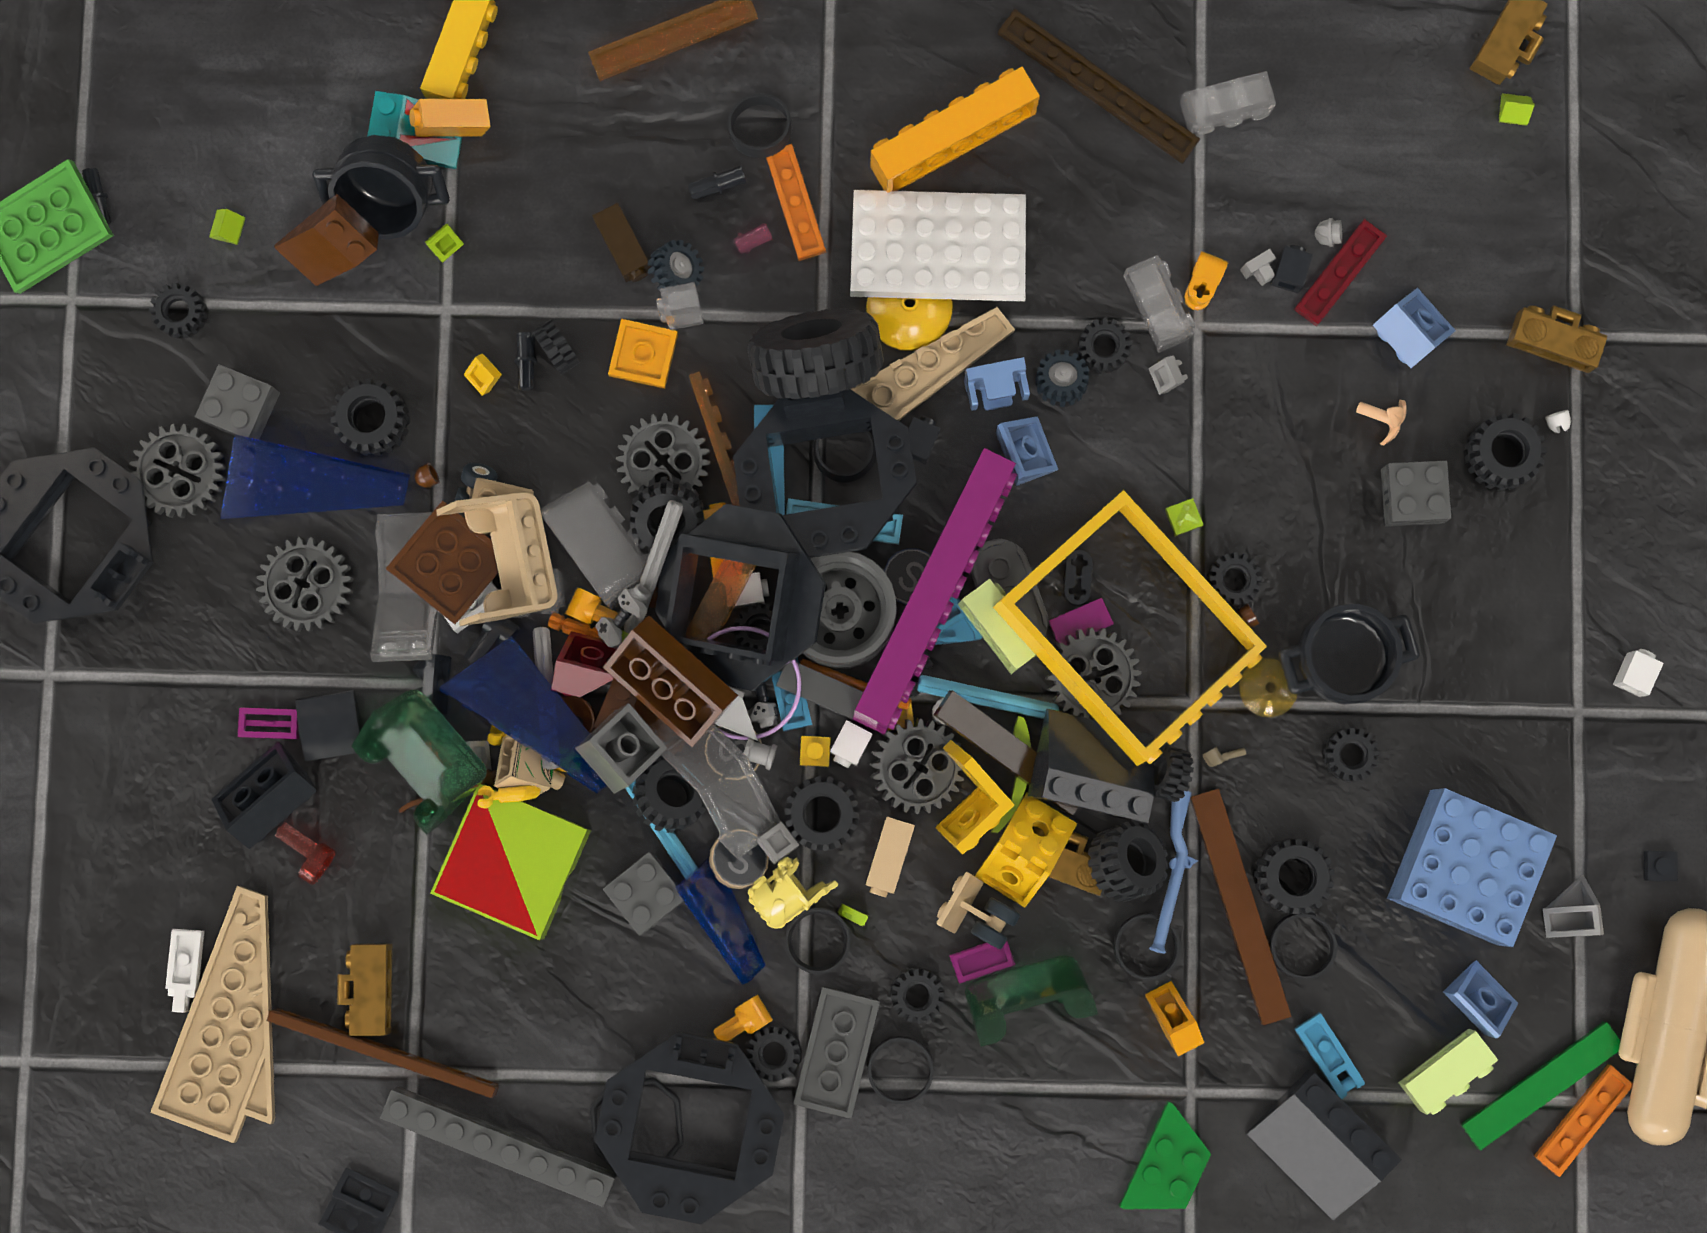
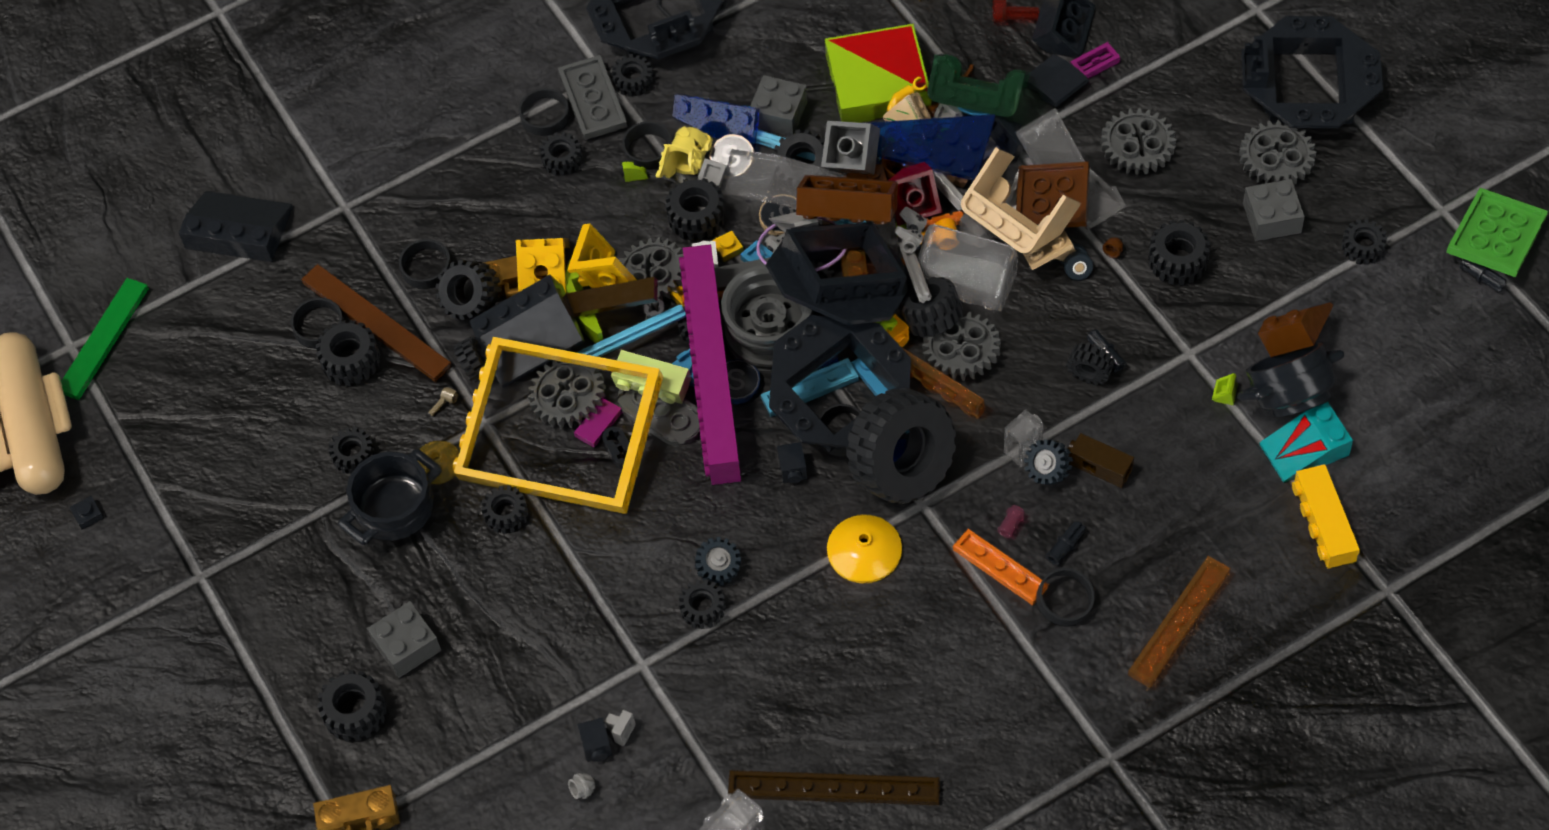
camera: 150 degrees right, 25 degrees down
(227, 226) = (1380, 311): lime slope -> none
(289, 480) = (1207, 182): clear blue wing -> none
(450, 117) = (1287, 458): light orange brick -> none
(482, 374) = (1127, 325): yellow plate -> none
(643, 353) = (1033, 397): light orange tile -> none
(749, 1017) = (662, 82): light orange axle -> none
(760, 753) = (761, 215): light grey bush -> none
(889, 856) = (633, 214): tan brick -> none
(920, 375) = (821, 509): tan wing -> none
(938, 245) = (871, 593): white plate -> none
(953, 912) = (540, 215): tan plate -> none
(954, 130) = (916, 673): light orange brick -> none
(980, 961) = (532, 198): magenta tile -> none
(996, 383) = (768, 522): medium blue panel -> none
(1023, 988) = (486, 188): clear green windscreen -> none
(1027, 446) = (712, 500): medium blue slope -> none
(1159, 303) = (680, 655): clear brick -> none
(1167, 374) = (642, 611): light grey tile -> none
(1167, 1166) = (333, 159): green wing -> none
(1175, 1018) = (380, 233): light orange slope -> none
(1177, 864) = (433, 316): medium blue piece -> none
(1184, 517) = (567, 530): lime tile -> none
(1205, 277) = (656, 695): light orange piece -> none
(1248, 616) = (478, 492): reddish brown hinge -> none
(1329, 1054) = (262, 272): dark azure plate -> none
(1340, 272) = (556, 766): dark red tile -> none
(1393, 417) = (451, 679): light nougat plant -> none
(1413, 328) = (473, 756): slope -> none
(1448, 1072) = (173, 306): yellowish green brick -> none
(1472, 867) = (224, 423): medium blue piece -> none
(1482, 1000) = (173, 357): medium blue slope -> none
(1559, 419) = (323, 759): white hinge -> none
(1574, 912) = (135, 444): light grey slope -> none
(1583, 1120) = (63, 334): orange tile -> none
(1638, 672) = (167, 619): white brick -> none

